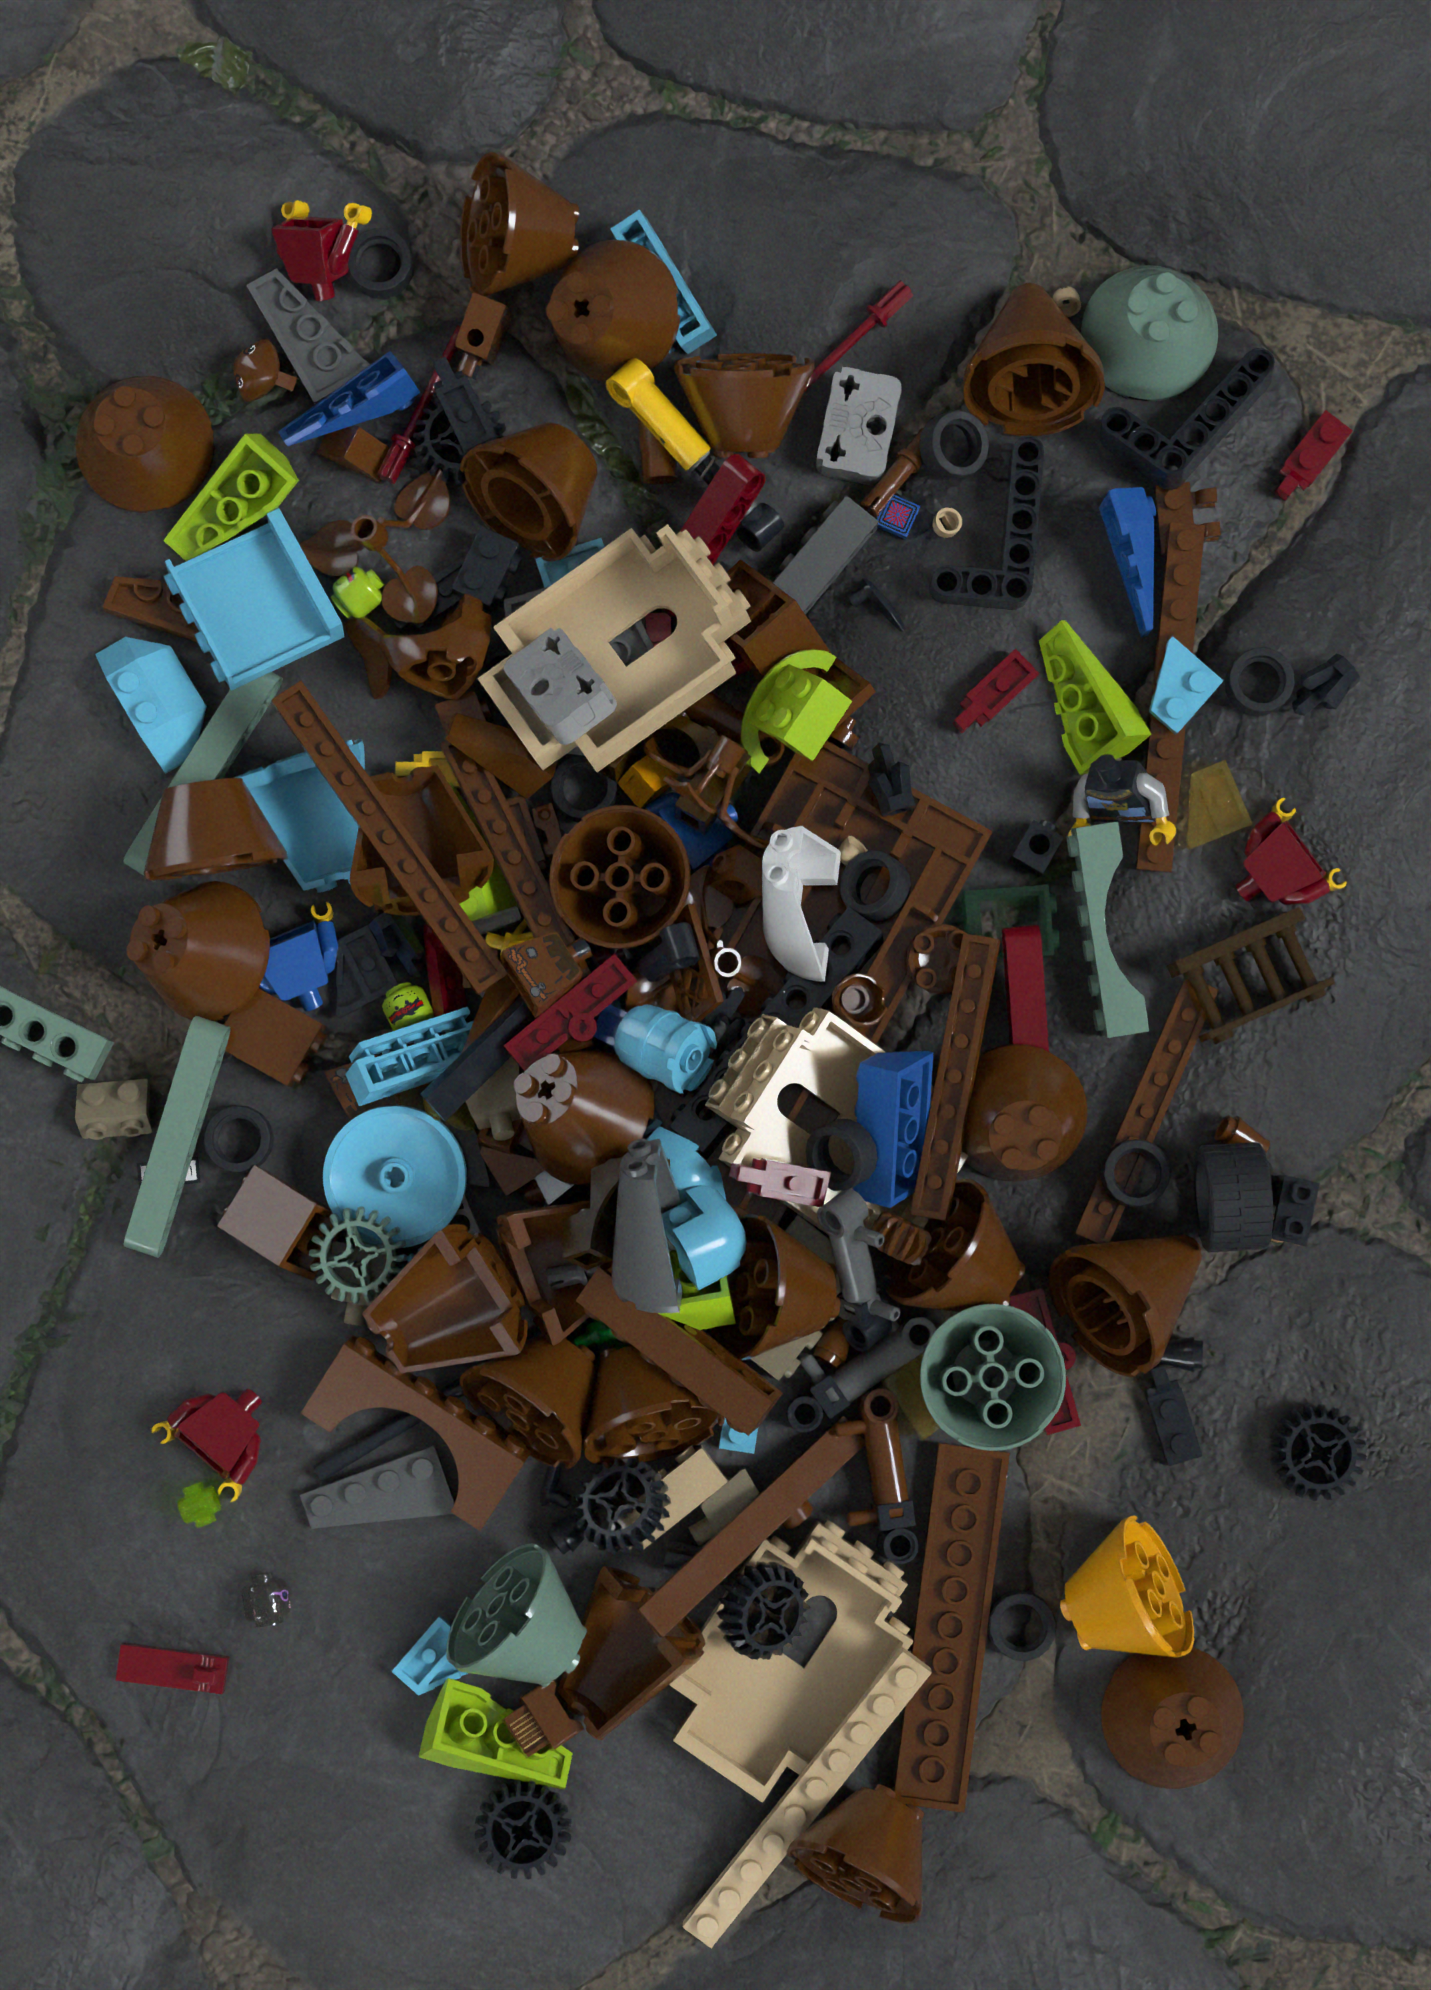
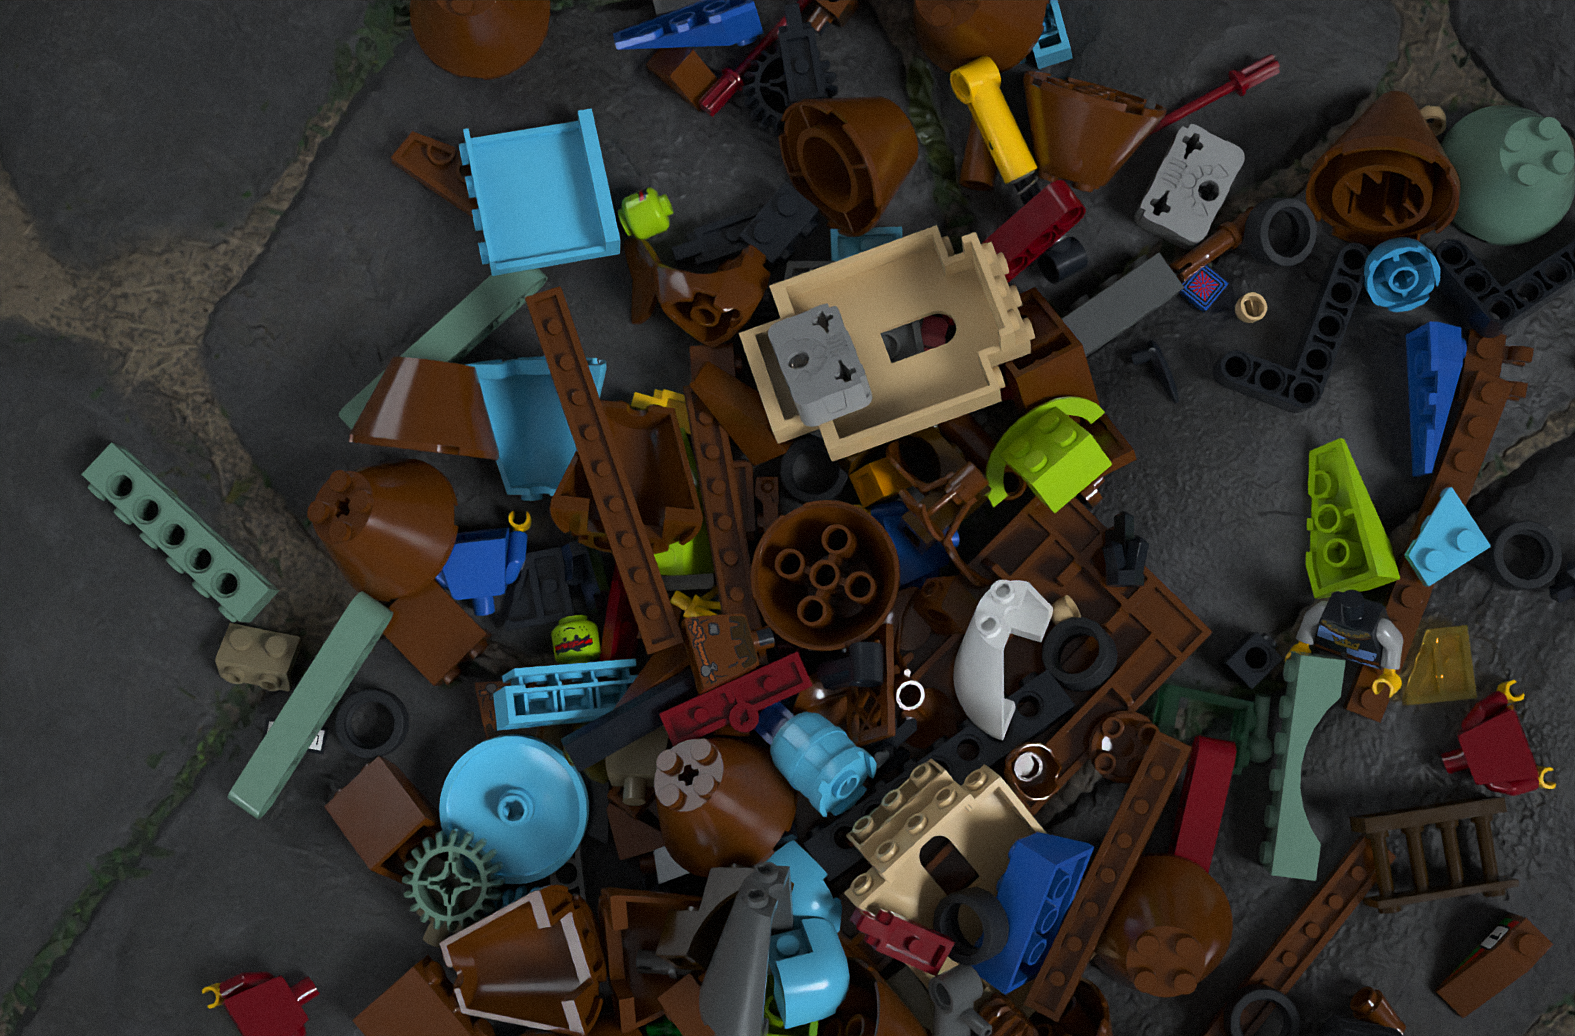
camera: 25 degrees right, 0 degrees up
(155, 697) = (417, 261): medium azure wedge -> none
(240, 492) = (555, 84): lime wedge -> none
(336, 546) = (637, 161): reddish brown plant -> none
(995, 691) = (1253, 490): dark red hinge -> none
(1067, 924) = (1259, 743): none -> sand green bar
(1074, 453) = (1401, 274): none -> dark azure cylinder
(1333, 1063) = (1494, 964): none -> reddish brown slope

